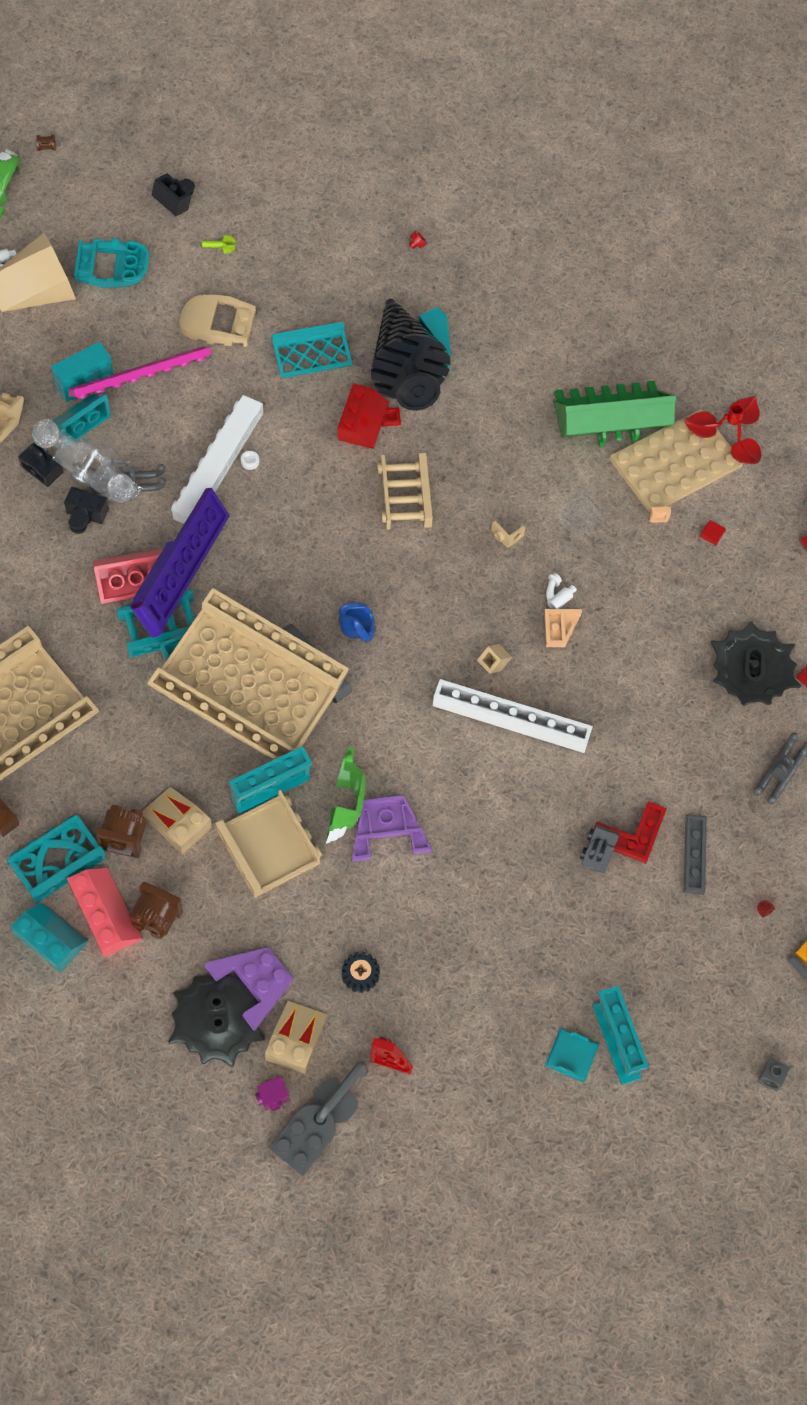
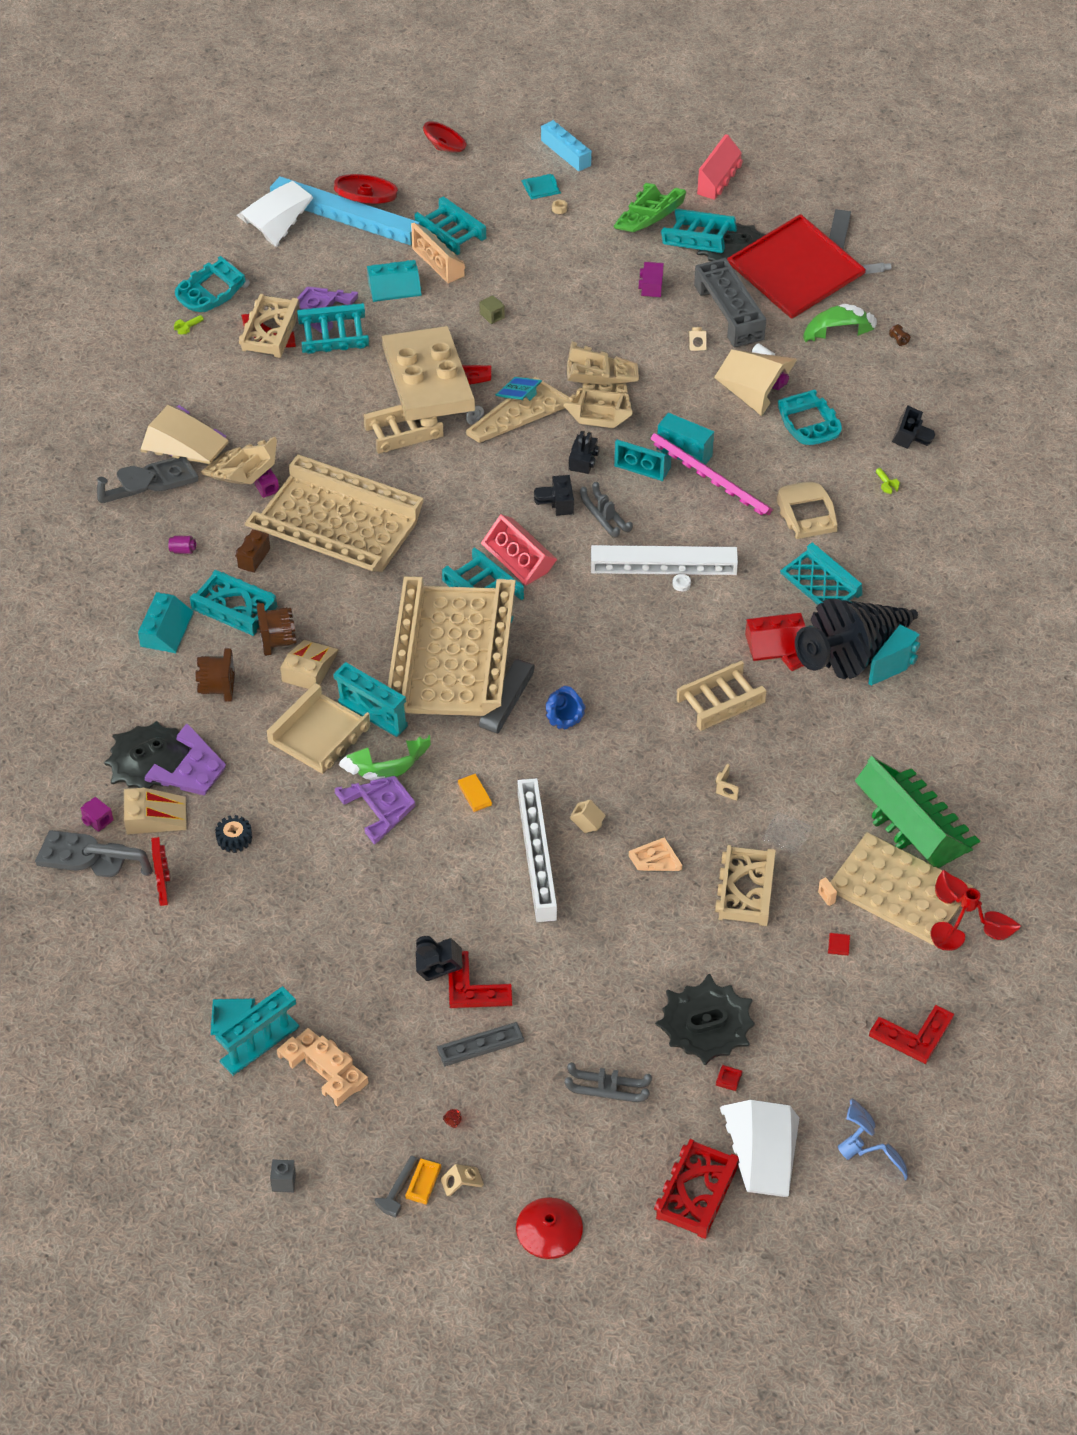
camera: 70 degrees right, 15 degrees down
(73, 453) = (603, 467): clear piece -> none
(104, 910) = (205, 639): coral slope -> none
(178, 564) = (538, 562): dark purple hinge -> none
(413, 740) = (474, 792): none -> light orange tile
(417, 239) = (997, 607): red tile -> none
(562, 597) = (682, 846): white plant -> none
(624, 587) = (759, 906): none -> tan fence
(666, 988) = (328, 1061): none -> light nougat bracket

